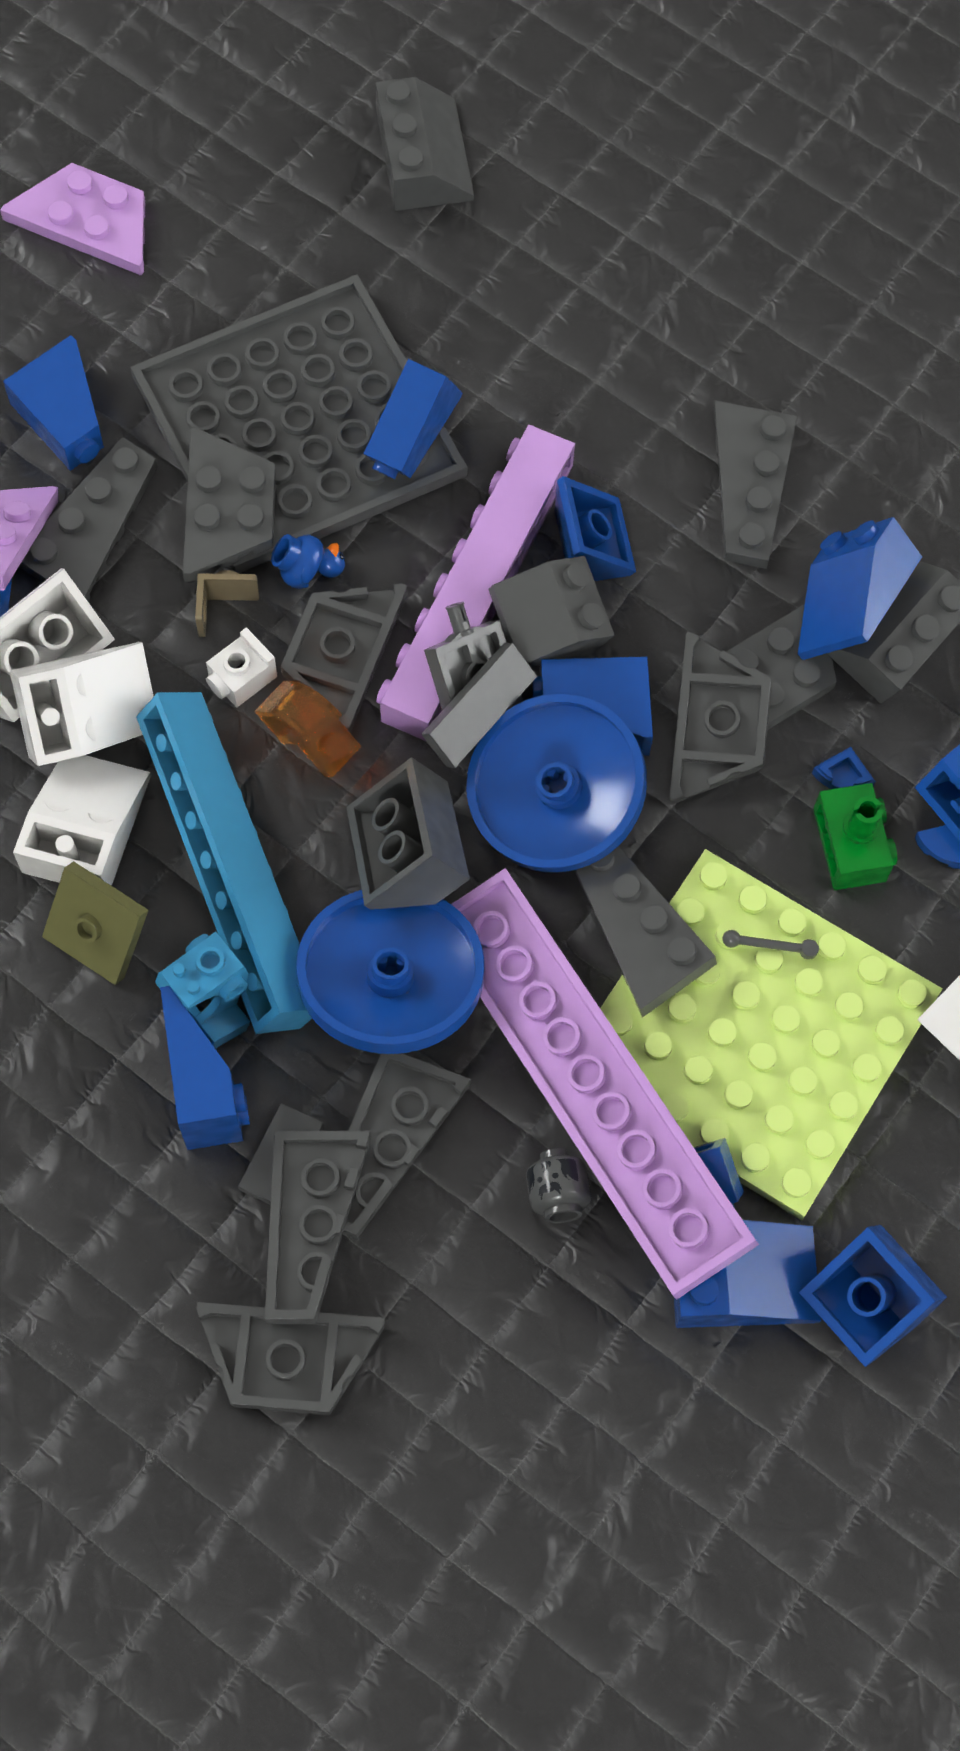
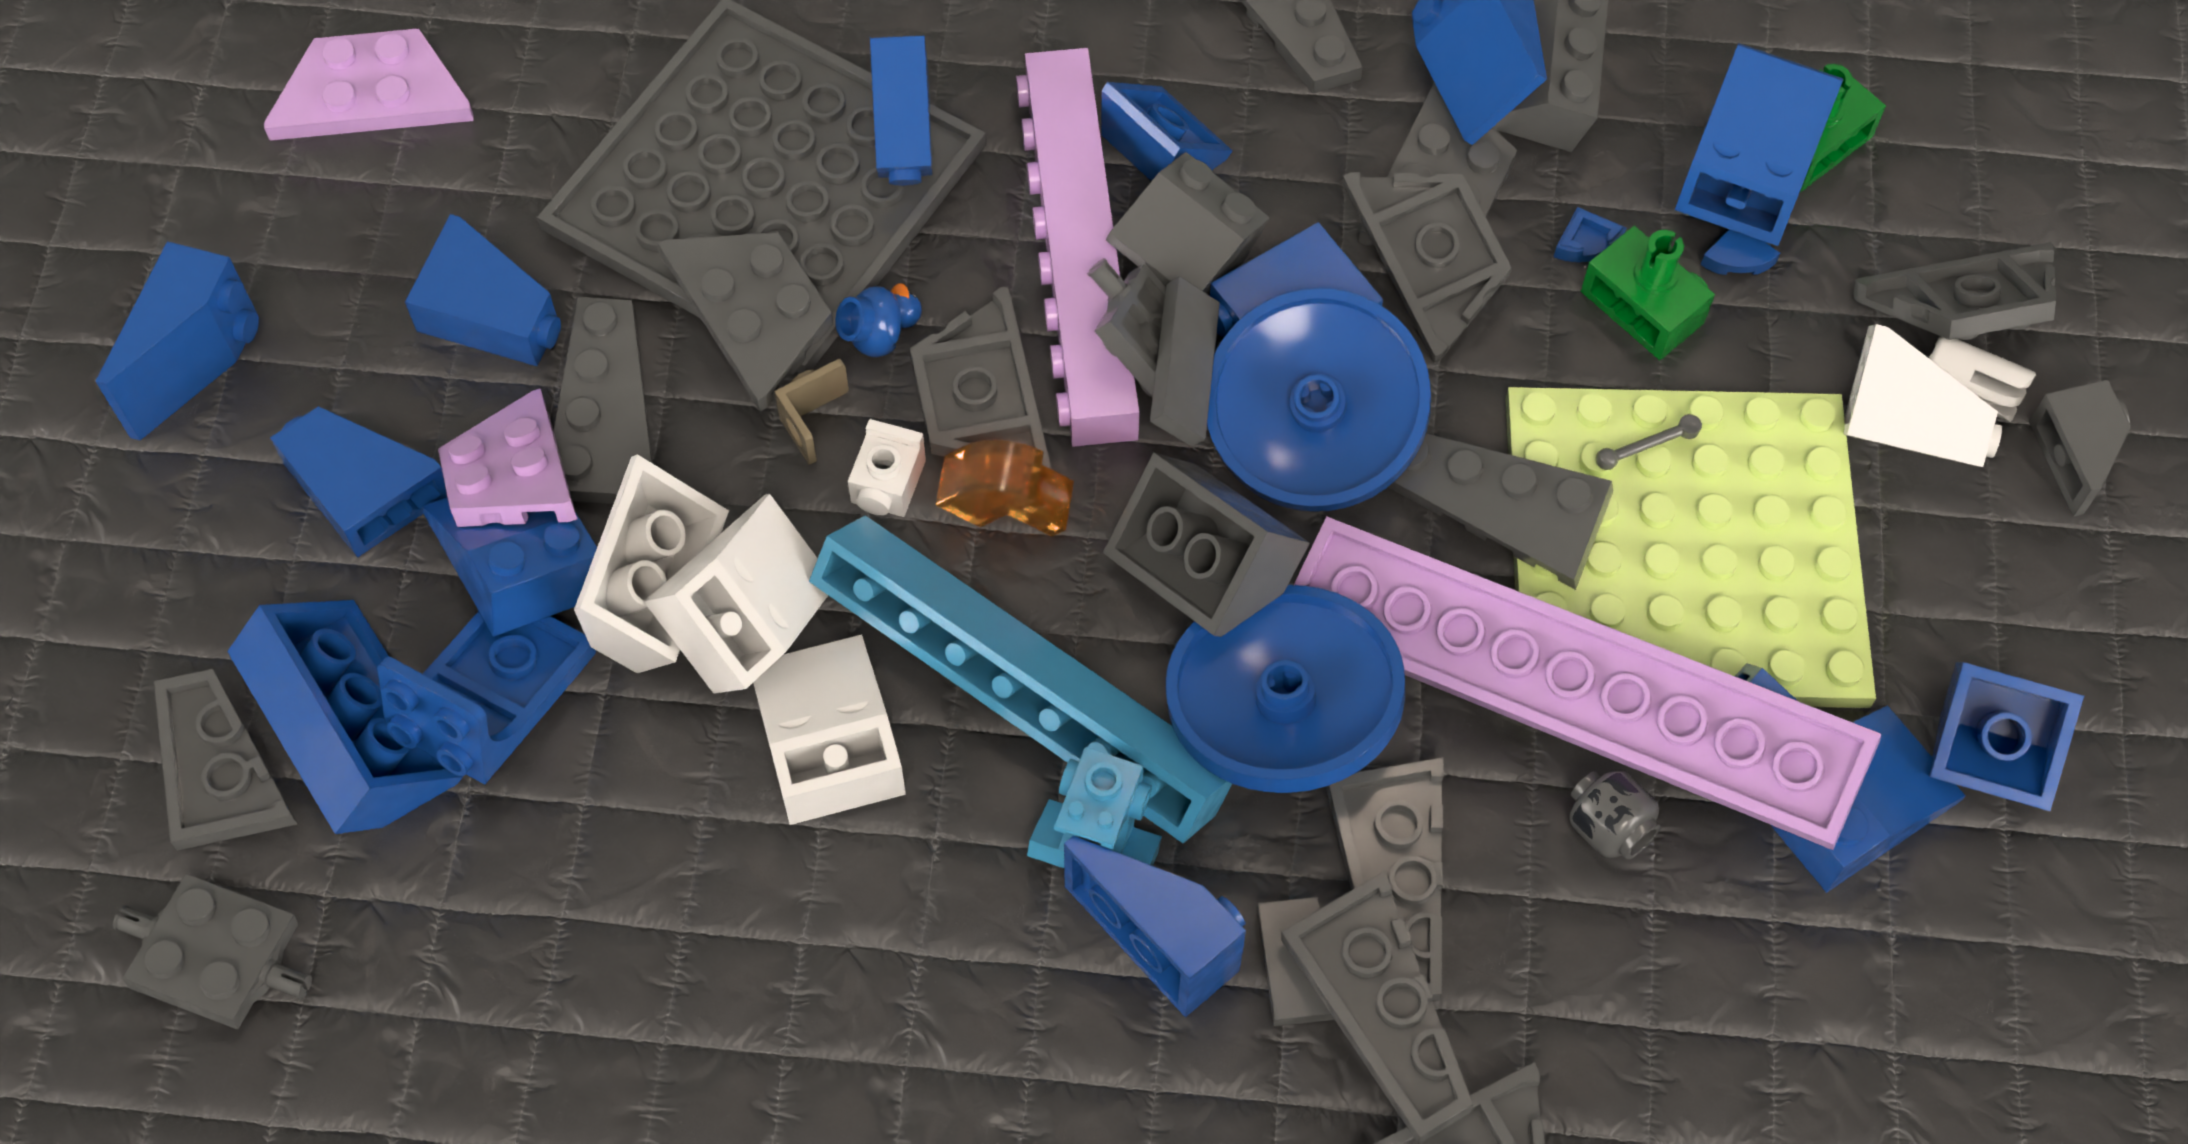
camera: 30 degrees left, 5 degrees down
(94, 923) = (922, 826): olive plate -> none

